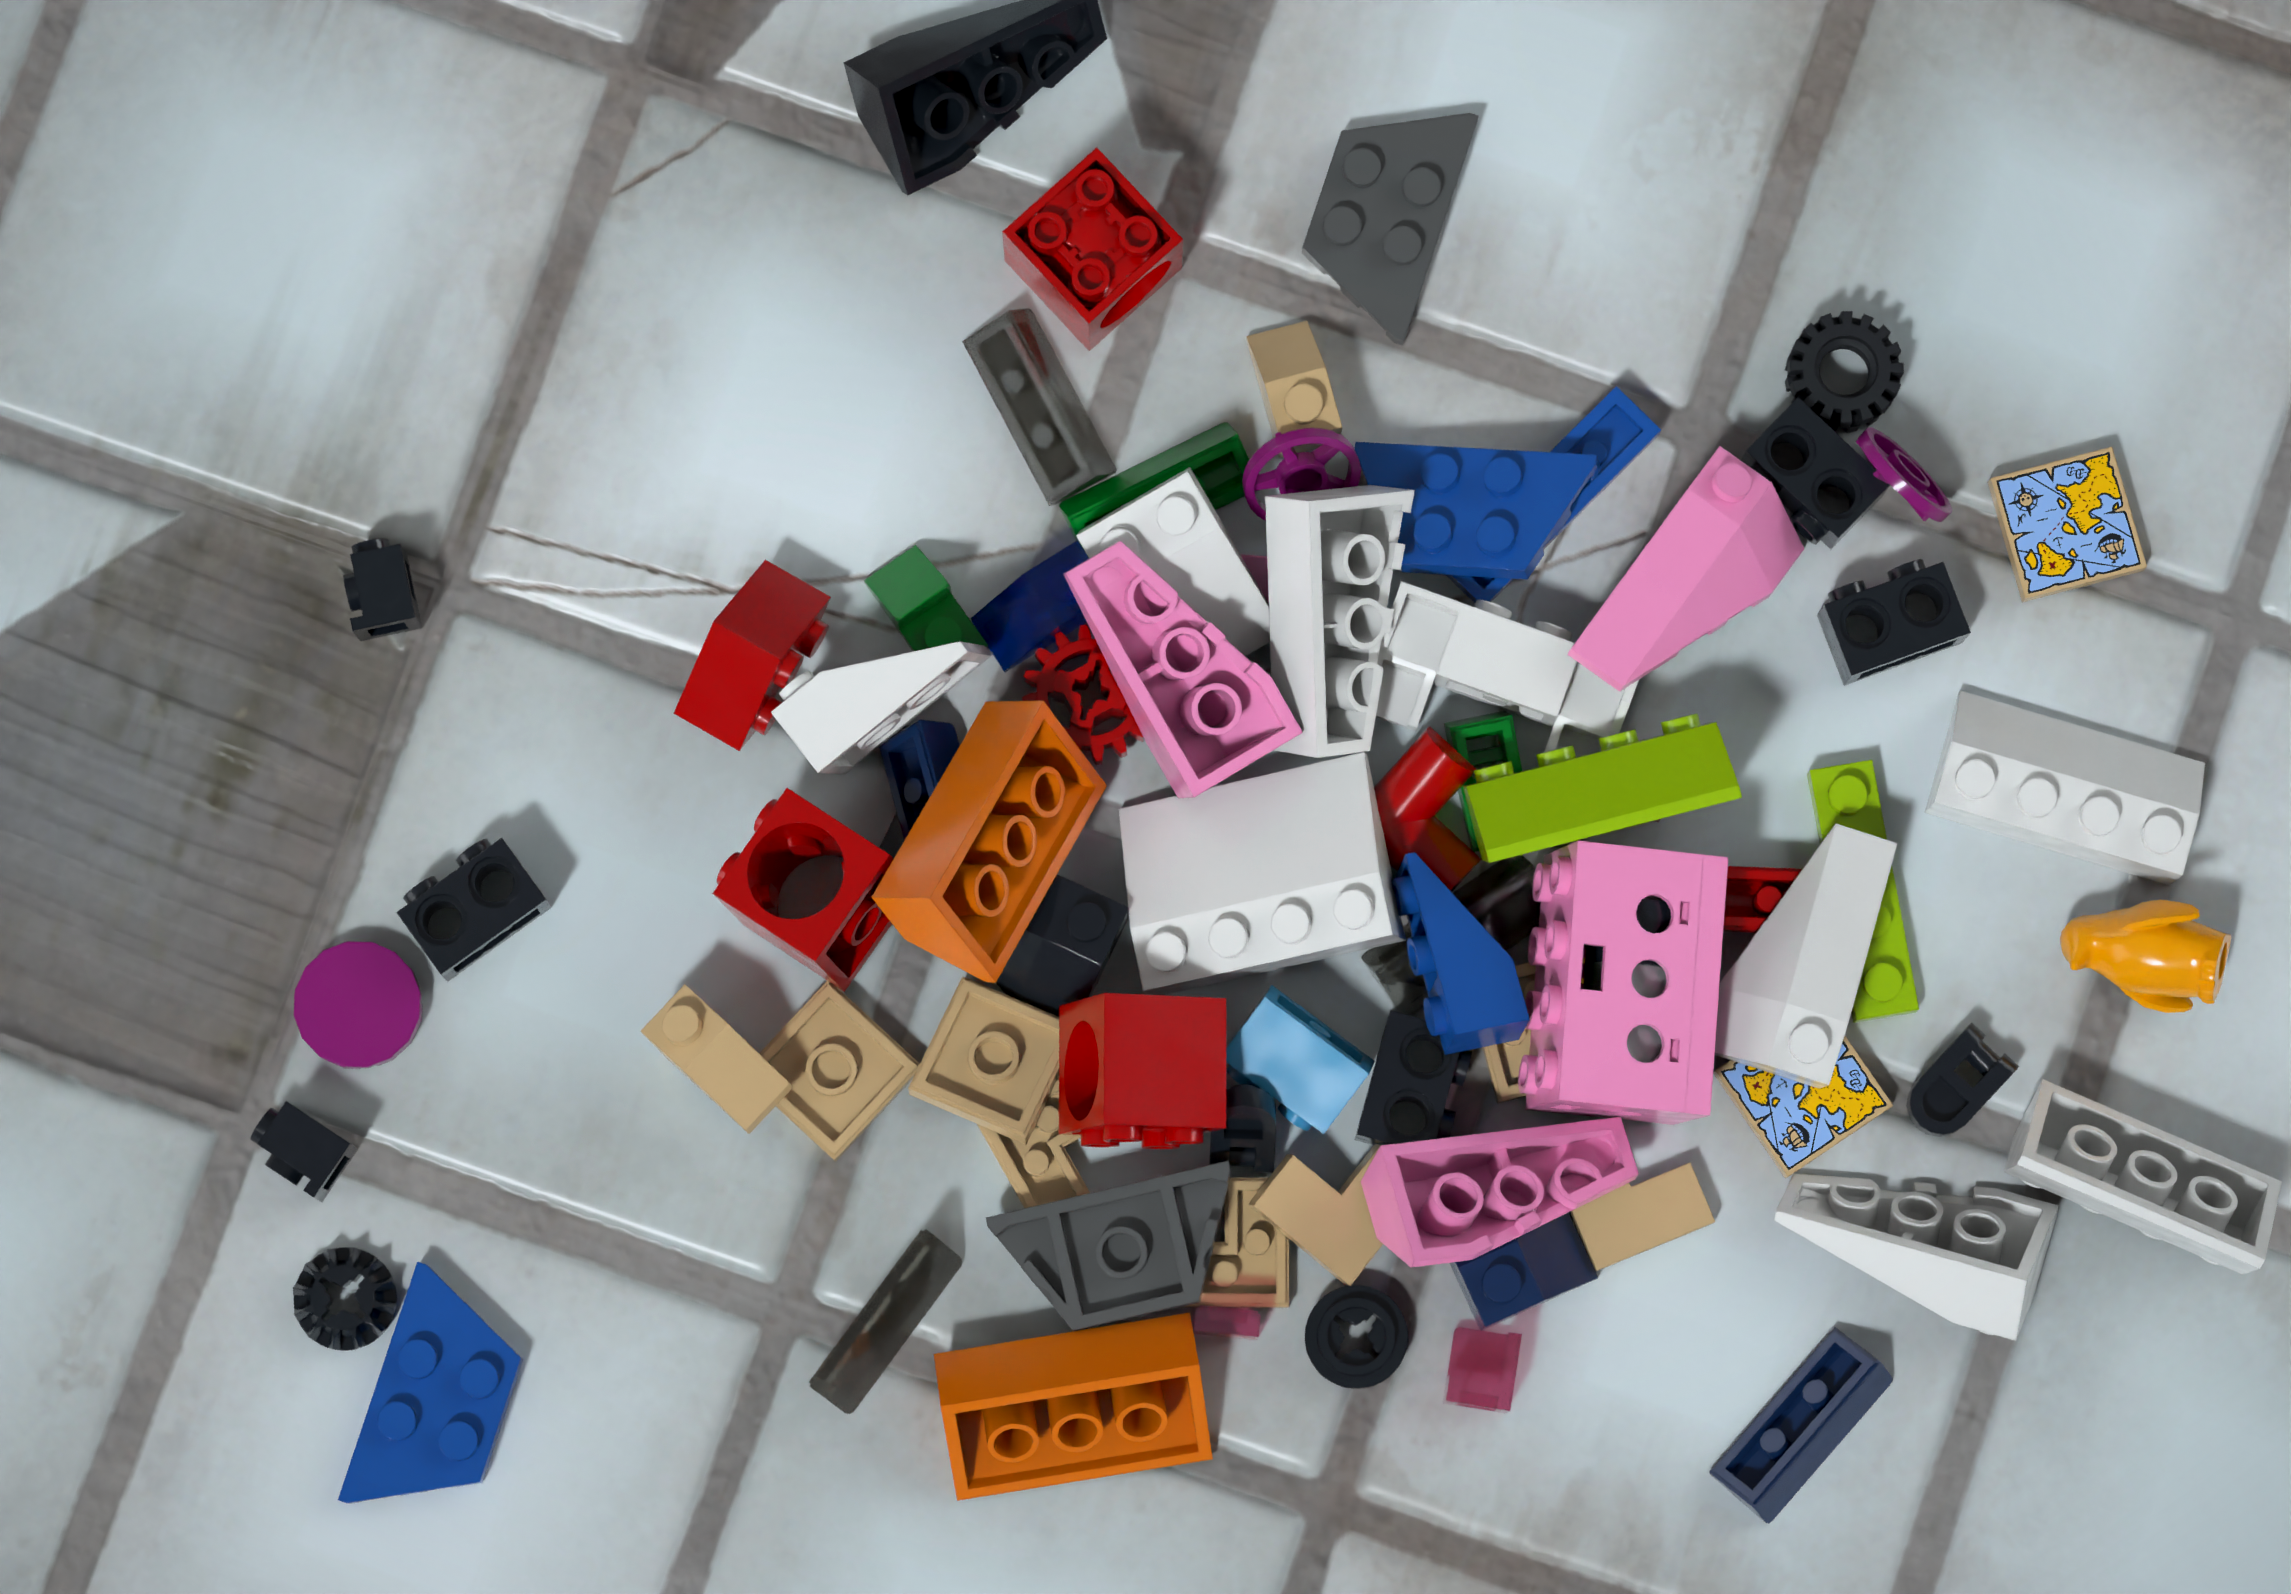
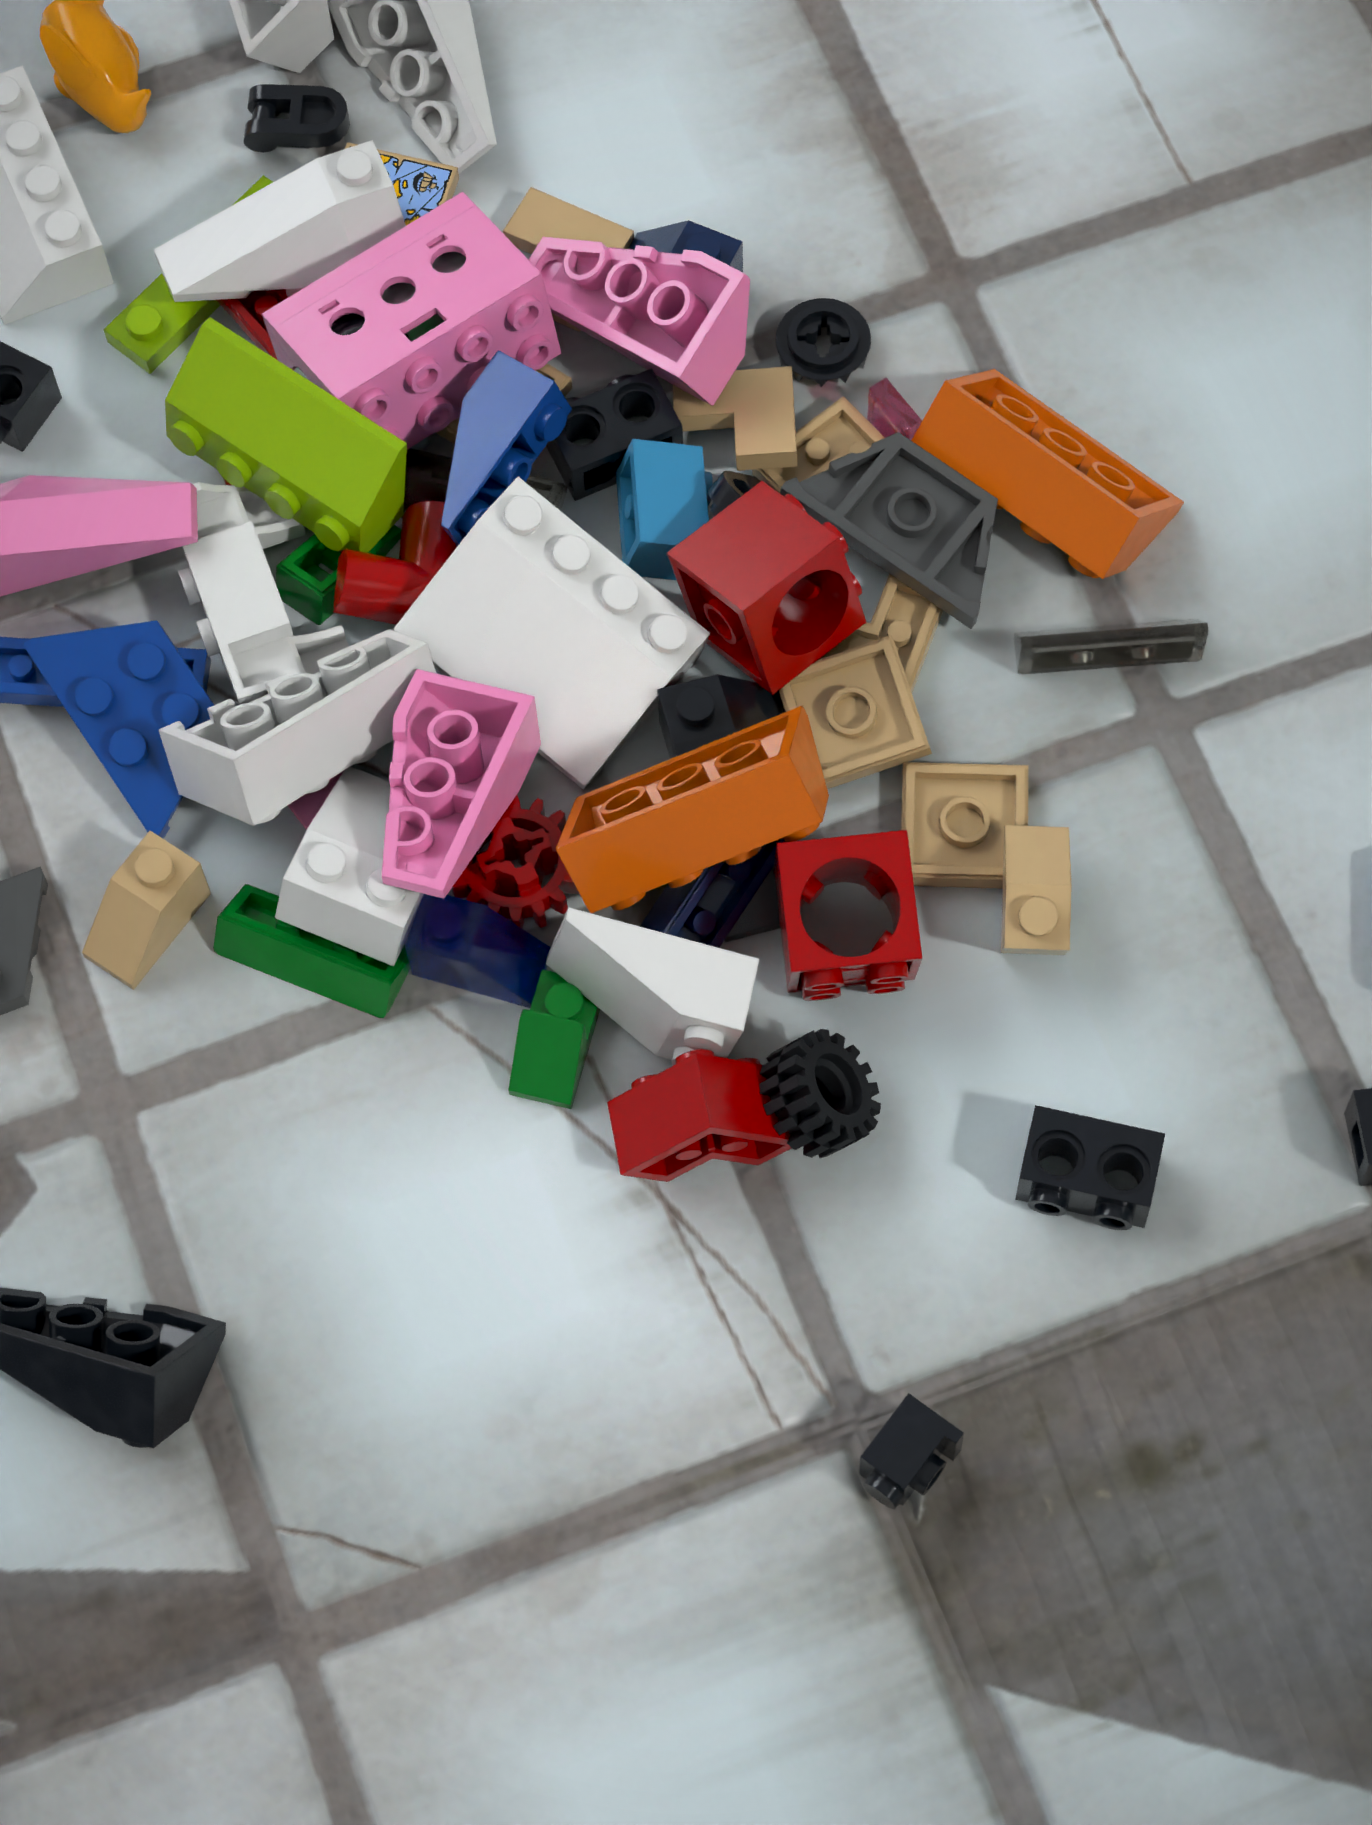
camera: 125 degrees left, 15 degrees down
(358, 1005) = (1241, 1198): magenta tile -> none
(676, 772) = (819, 1093): none -> black tyre
(1039, 405) = (317, 1091): clear smoke slope -> none
(1093, 249) = (154, 1125): red brick -> none
(1298, 470) = (214, 841): magenta wheel -> none
(1482, 1370) = (775, 243): clear pink panel -> none
(1802, 1425) = (621, 48): dark blue slope -> none

